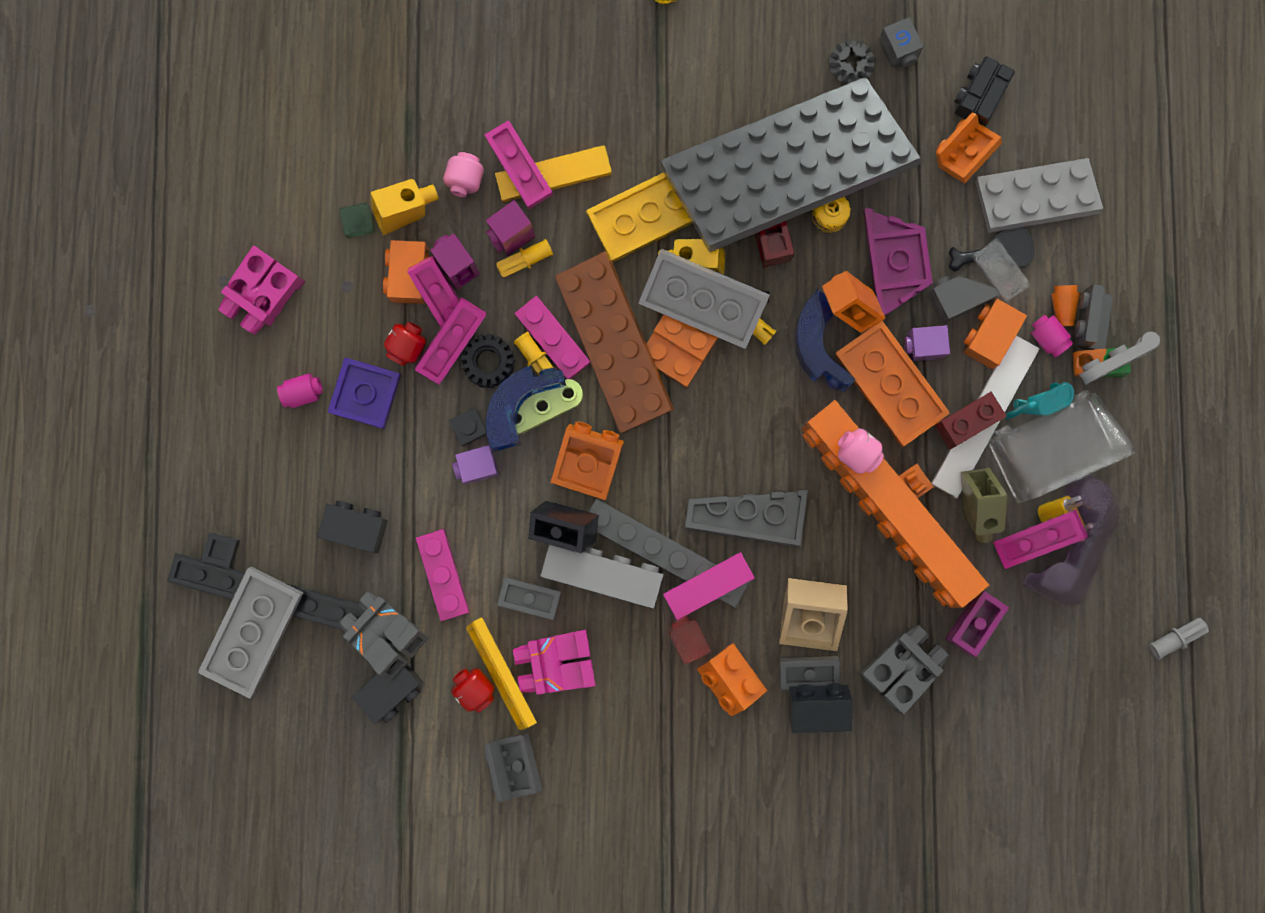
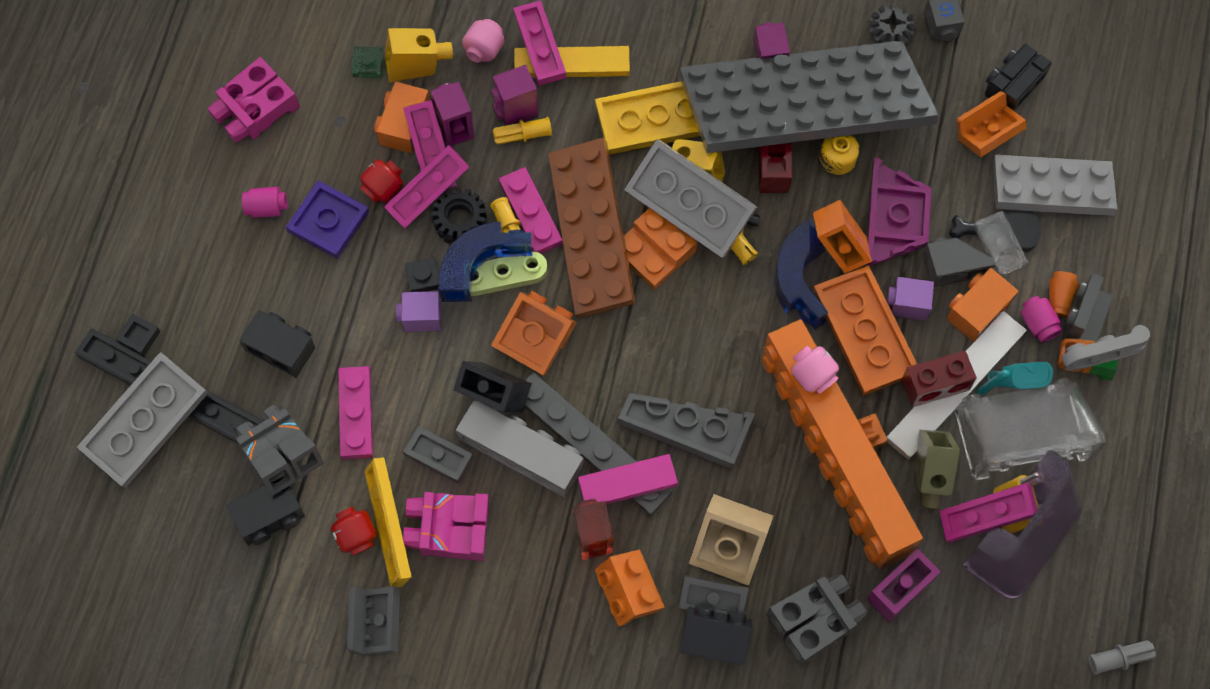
camera: 10 degrees right, 15 degrees down
(740, 110) = (770, 40): none -> magenta brick

